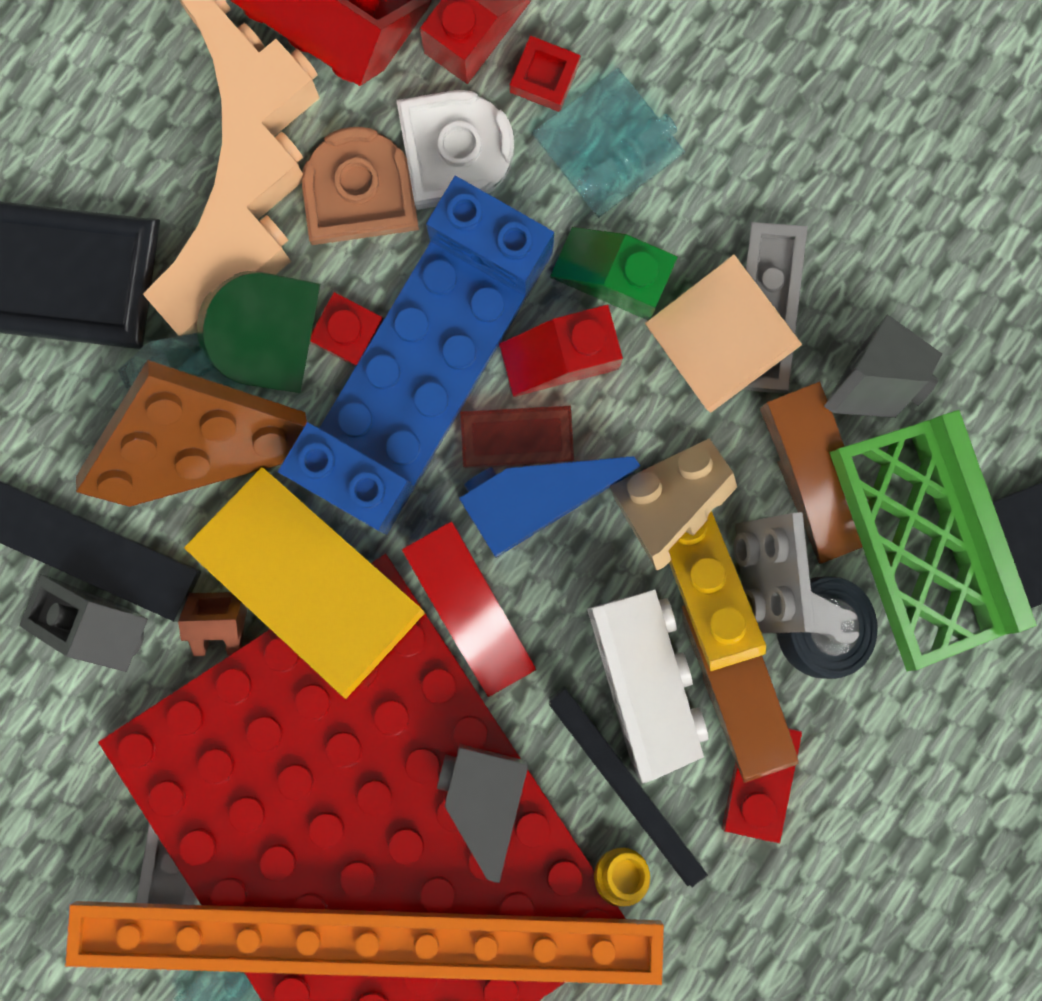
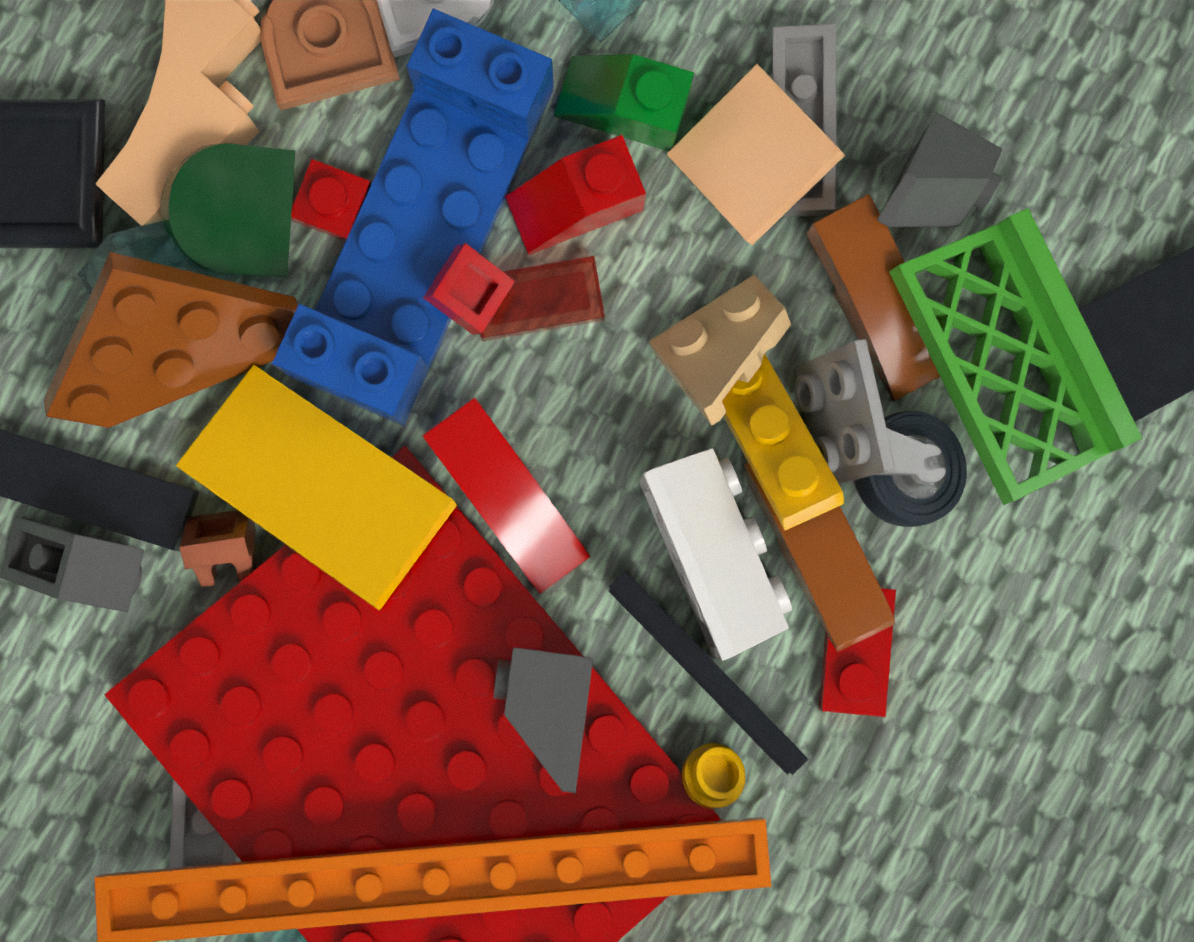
camera: 15 degrees left, 0 degrees up
(457, 424) = (469, 289): none -> red plate
(529, 498) = (564, 362): blue slope -> none

